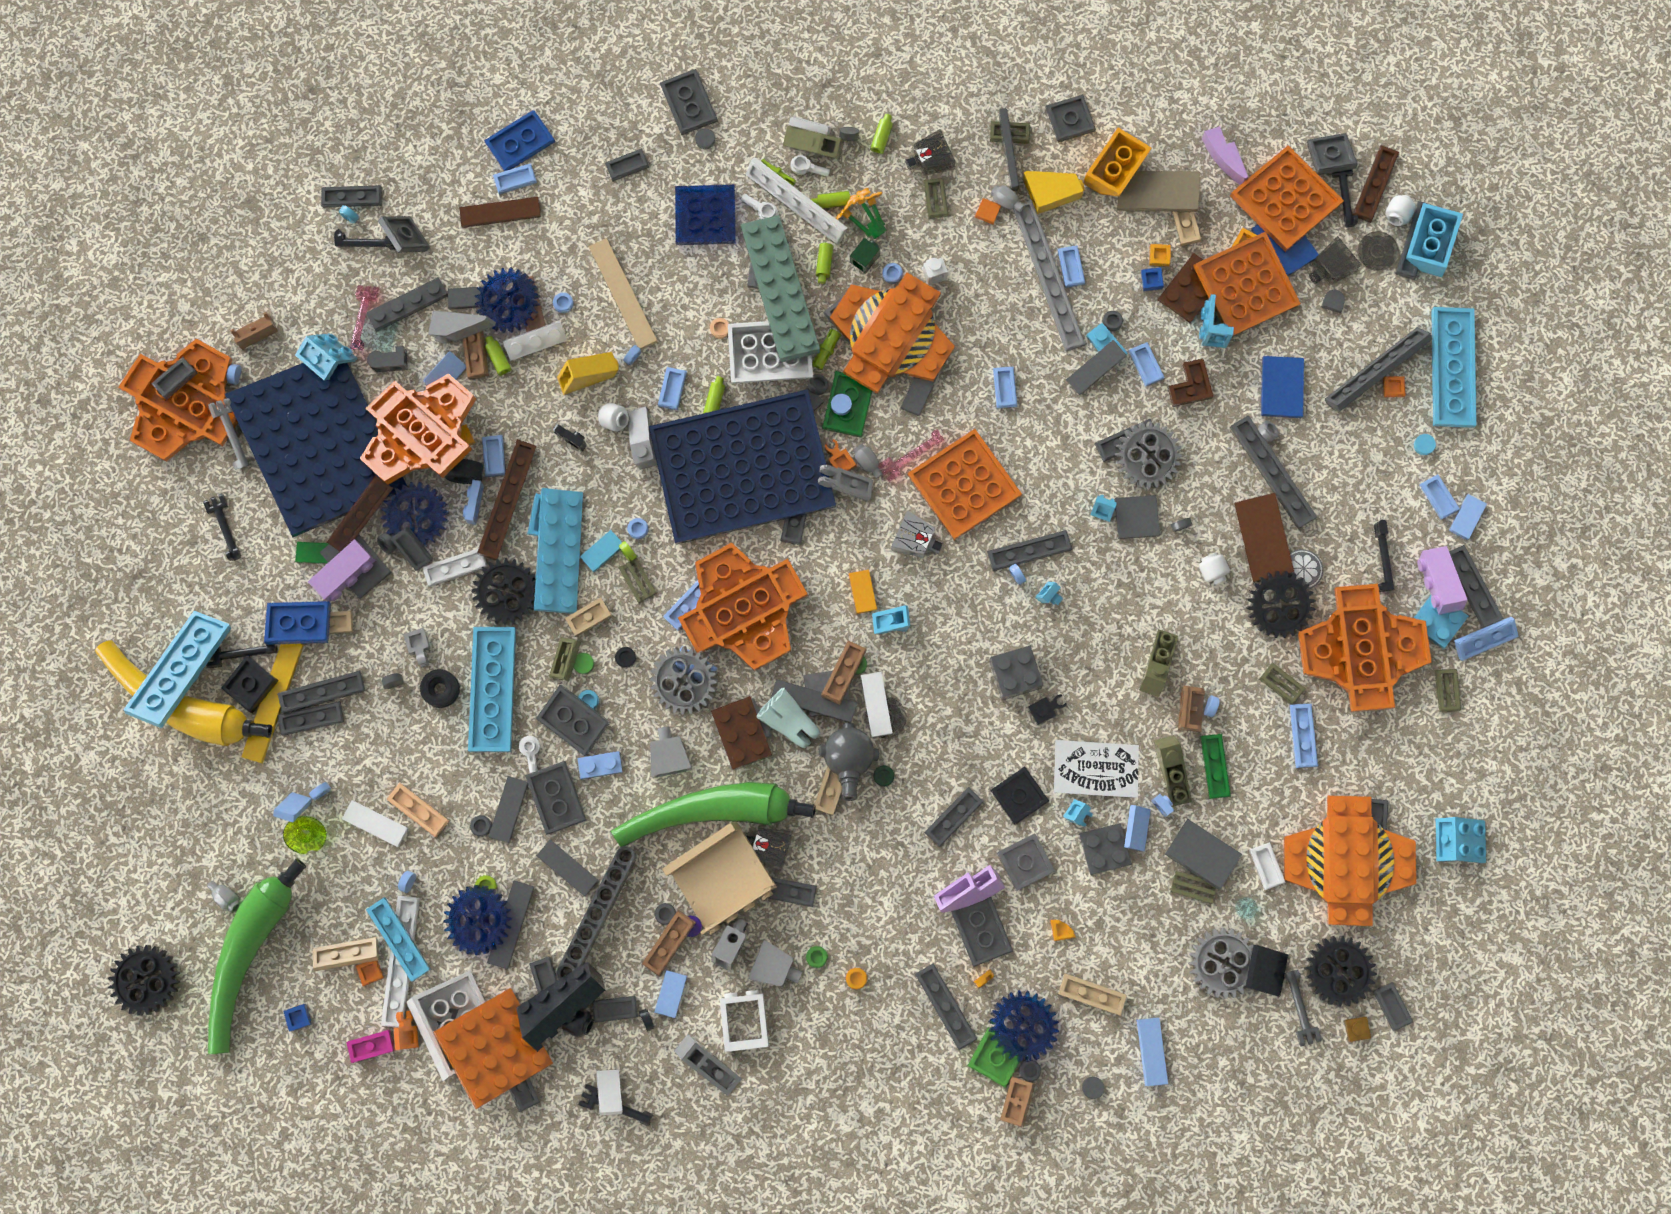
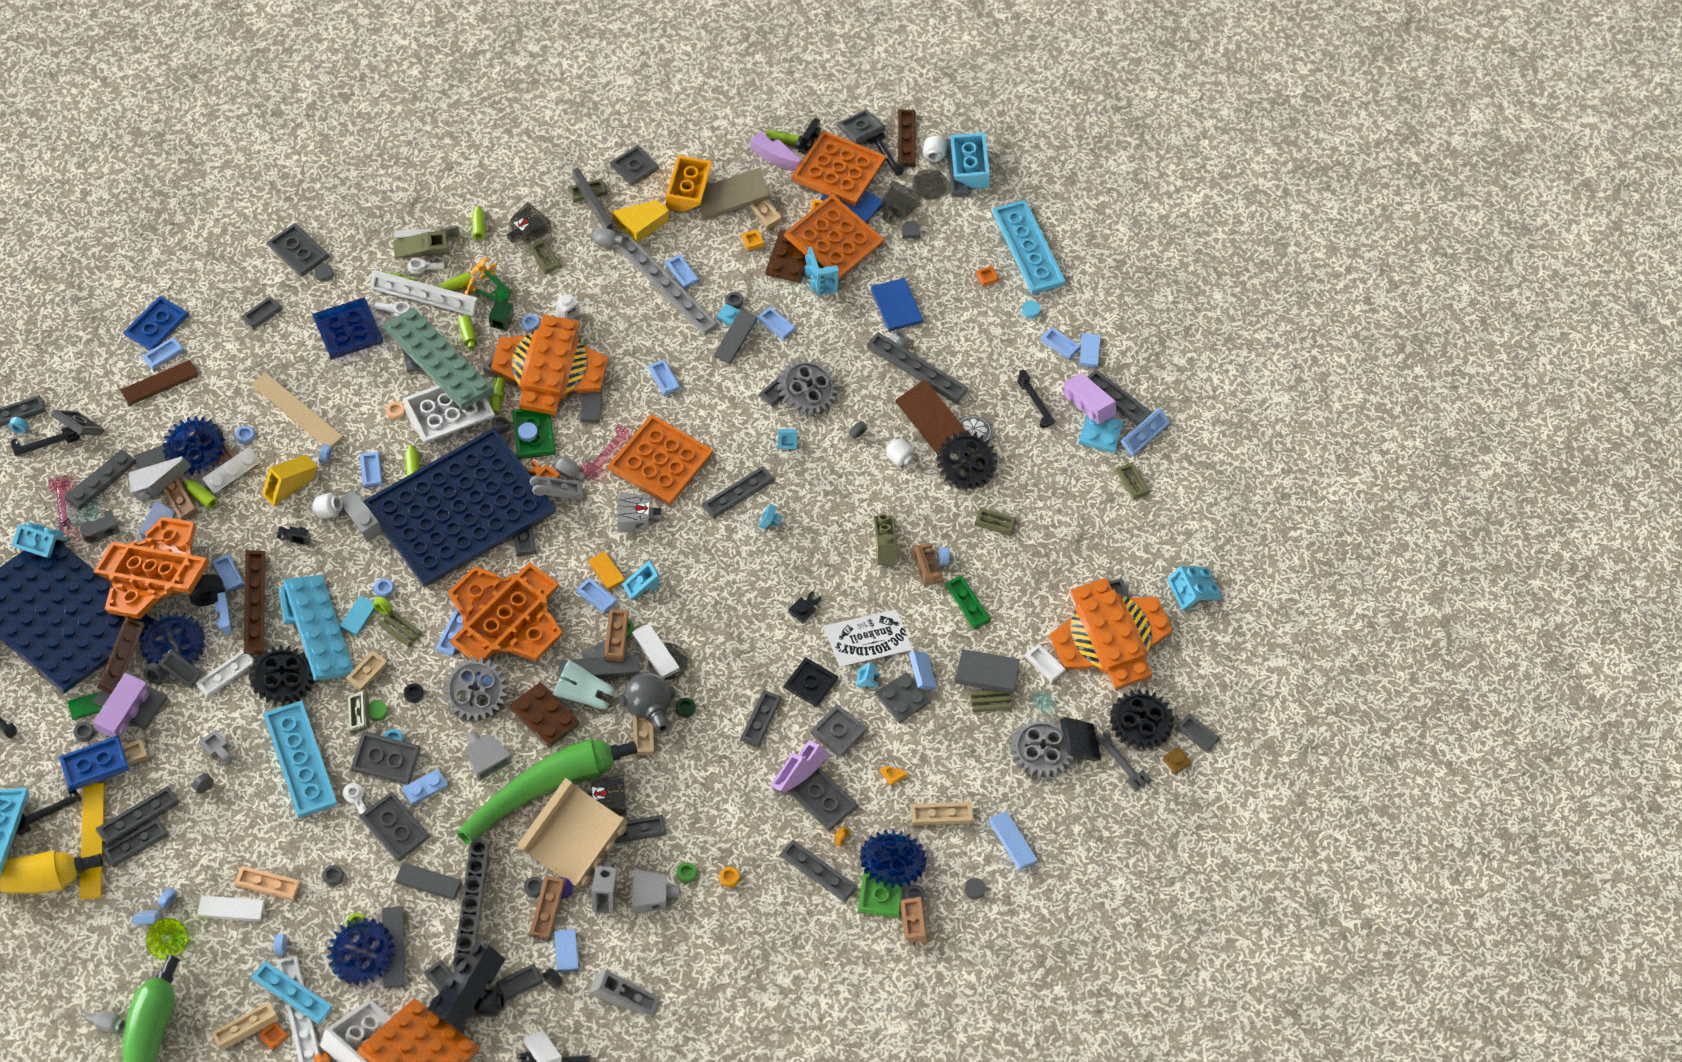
camera: 30 degrees left, 20 degrees down
(249, 684) = (65, 832): black tile -> none
(300, 580) = (83, 732): none -> dark grey tile
(451, 691) = (246, 764): black tyre -> none
(508, 809) = (353, 853): dark grey tile -> none
(746, 1044) = (651, 964): white window -> none
(842, 616) = (596, 595): none -> light blue tile
(988, 211) = (593, 253): orange tile -> none
(1016, 672) = (766, 585): dark grey brick -> none
(1017, 574) = (735, 511): light blue tile -> none
(1137, 517) = (819, 437): dark grey tile -> none
(1152, 279) = (754, 259): blue plate -> none
(1163, 804) = (936, 644): light blue plate -> none
(1173, 769) = (933, 615): olive slope -> none
(1197, 385) = (824, 325): reddish brown plate -> none
(1242, 138) = (784, 137): none -> lime pin
(1264, 153) = (807, 140): none -> black hinge
(1303, 735) = (1030, 554): light blue tile -> none
(1364, 647) = (1049, 469): orange plate -> none
(1378, 369) = (968, 266): dark grey plate -> none

